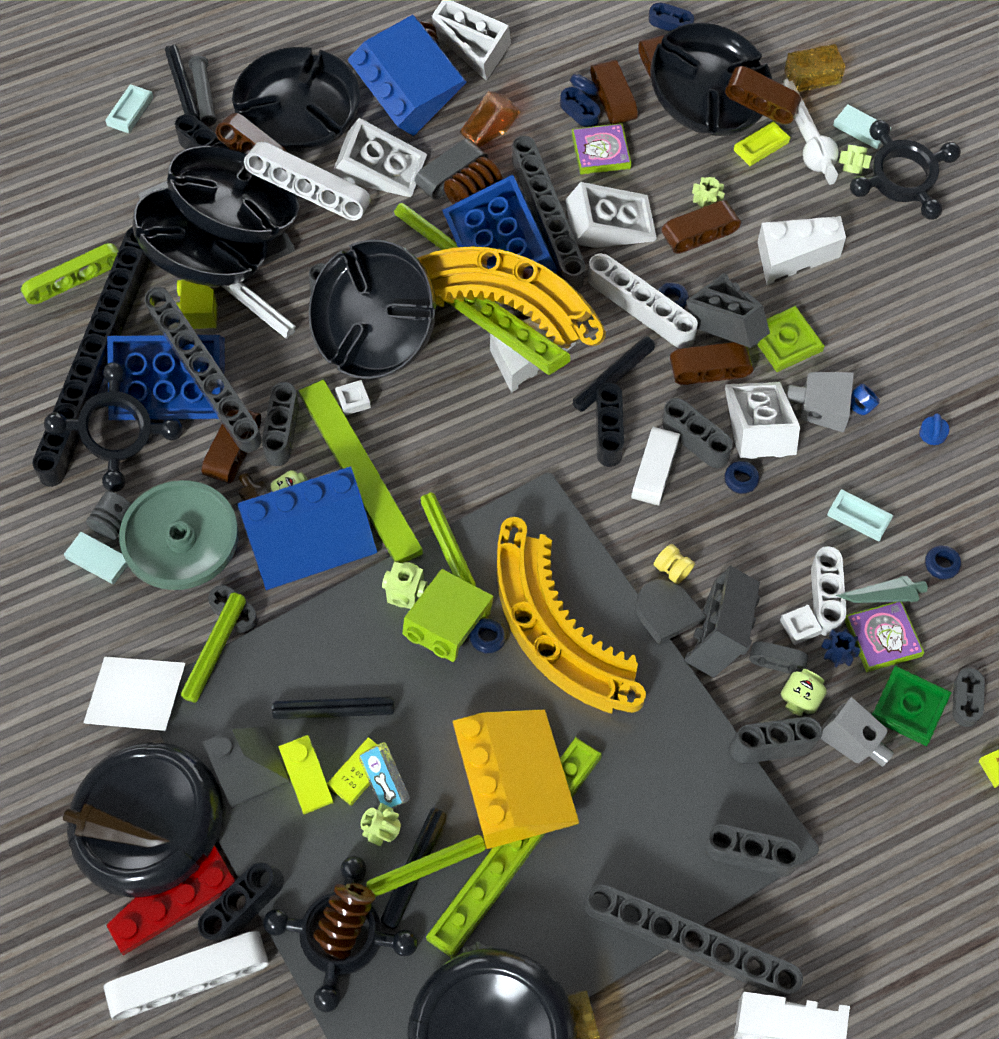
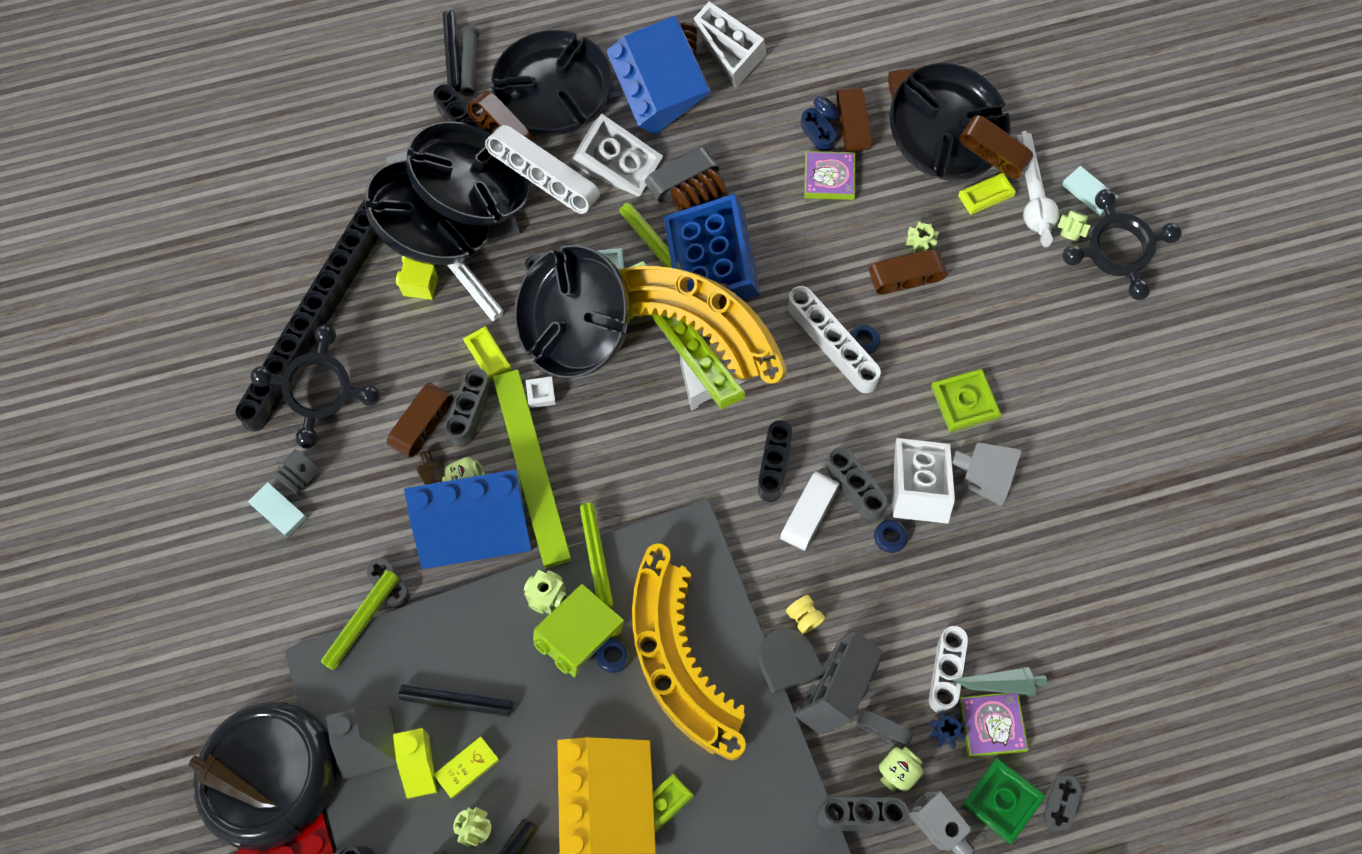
camera: 15 degrees right, 5 degrees up
(43, 287) = (288, 234): lime beam -> none
(129, 108) = (399, 68): light aqua tile -> none
(134, 693) = (282, 650): white sticker -> none
(160, 378) = (378, 342): blue slope -> none
(179, 535) = (352, 503): sand green dish -> none
(209, 379) = (411, 355): dark grey beam -> none
(286, 368) = (487, 353): none -> neon yellow tile
(384, 776) = (484, 781): slope -> none
(490, 118) = (729, 130): clear orange slope -> none
(547, 211) = (767, 243): dark grey beam -> none
(609, 216) = (821, 248): white slope -> none
(614, 372) = (792, 407): black axle -> none
(670, 17) = (926, 50): dark blue beam -> none
(711, 363) = (886, 414): reddish brown beam -> none
(729, 312) = (912, 368): dark grey wedge -> none
(799, 244) = (999, 306): white wedge -> none
(801, 624) = (914, 699): white plate -> none
(815, 67) = (1056, 123): clear yellow brick -> none
(860, 515) = (997, 595): light aqua tile -> none
(866, 397) = (1029, 475): blue tile -> none
(934, 430) = (1090, 520): blue tile -> none
(947, 553) = (1075, 650): dark blue piece -> none

